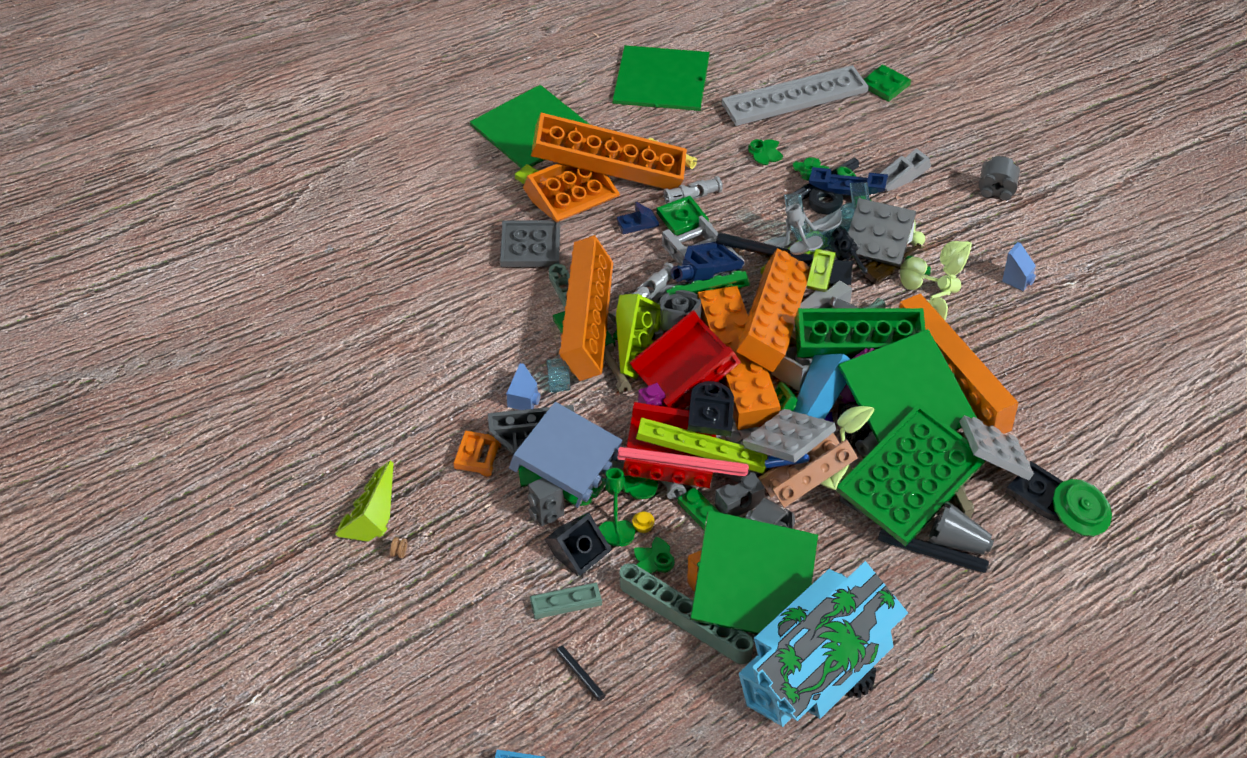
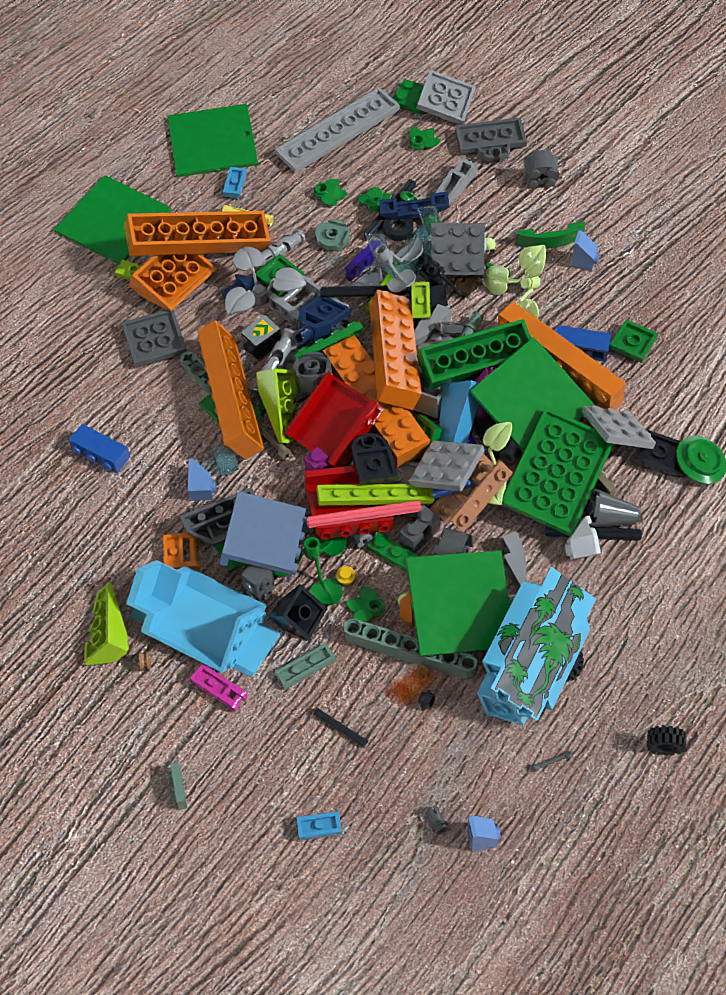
camera: 15 degrees left, 10 degrees up
(384, 673) = (175, 778): none -> sand green plate
(433, 332) = (99, 448): none -> blue brick
(465, 595) = (218, 687): none -> dark pink plate
(473, 520) = (201, 617): none -> medium azure panel
(631, 226) = (241, 300): none -> light grey plant
(639, 267) = (261, 337): none -> piece
(669, 120) = (234, 182): none -> dark azure plate
(677, 653) = (414, 685): none -> clear orange slope
(685, 670) = (426, 699): none -> black plate
(744, 192) = (336, 242): none -> sand green plate
(769, 224) = (359, 263): none -> dark purple plate
(834, 551) = (514, 558): none -> light grey slope
(882, 124) = (422, 139): none -> green plate
(915, 554) = (583, 541): none -> white slope
(920, 89) = (446, 97): none -> light grey plate
(956, 139) = (491, 138): none -> dark grey plate
(988, 248) = (552, 239): none -> green slope
(997, 359) = (590, 342): none -> blue brick
(1045, 369) = (633, 341): none -> green plate

